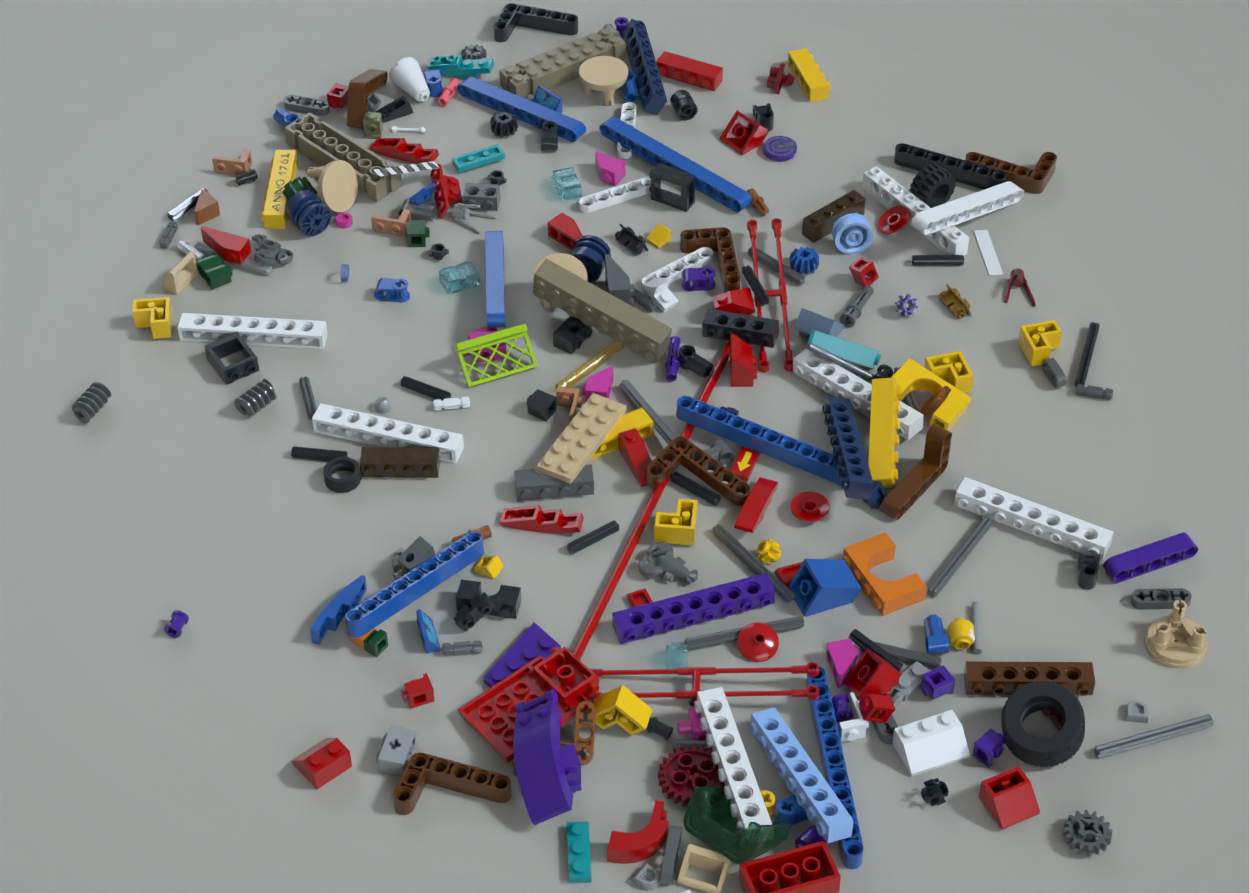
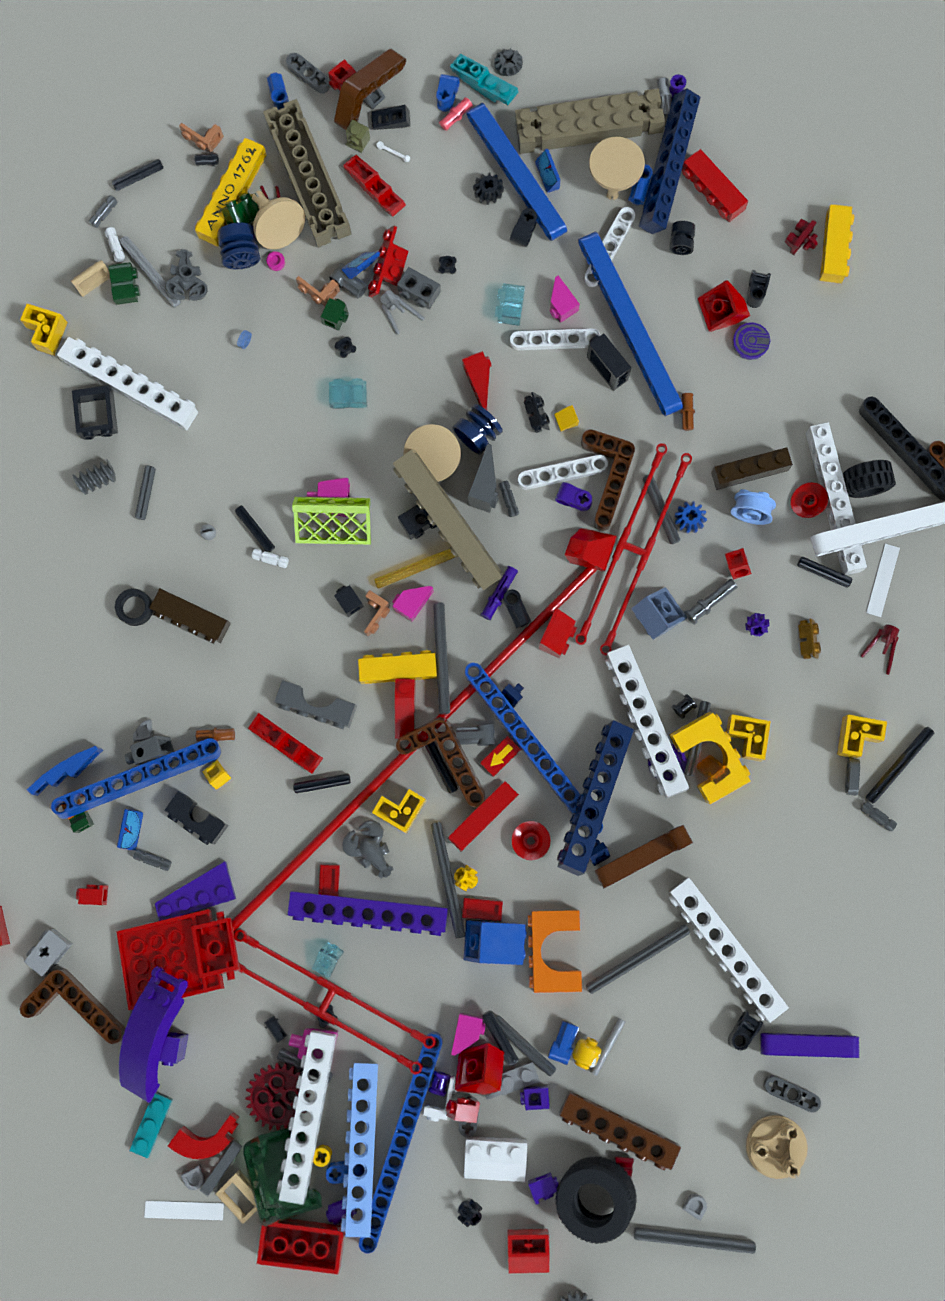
camera: 30 degrees right, 35 degrees up
(206, 208) = (149, 189): dark orange slope -> none
(227, 245) = (146, 264): red slope -> none
(316, 454) = (125, 570): black axle -> none
(385, 431) = (147, 527): white brick -> none
(391, 290) = (277, 383): blue piece -> none
(406, 168) = (356, 225): sticker -> none
(410, 79) = (422, 82): white cone -> none
(467, 617) = (180, 832): black hinge -> none
(478, 158) = (441, 228): teal plate -> none
(495, 279) = (376, 417): beam -> none
(534, 18) = (589, 35): black beam -> none
(579, 742) = (199, 1019): dark orange beam -> none
(581, 438) = (359, 669): tan plate -> none
(622, 708) = (247, 1004): yellow brick -> none
(660, 294) = (528, 501): white slope -> none
(732, 635) = (400, 957): dark grey axle -> none
(749, 328) = (559, 568): black brick -> none
(755, 285) = (621, 537): black axle -> none
(756, 650) = (407, 967): red dish -> none
(839, 361) = (648, 678): dark grey bar -> none
(845, 349) = (660, 662): teal slope -> none
(884, 431) = (639, 793): yellow brick -> none

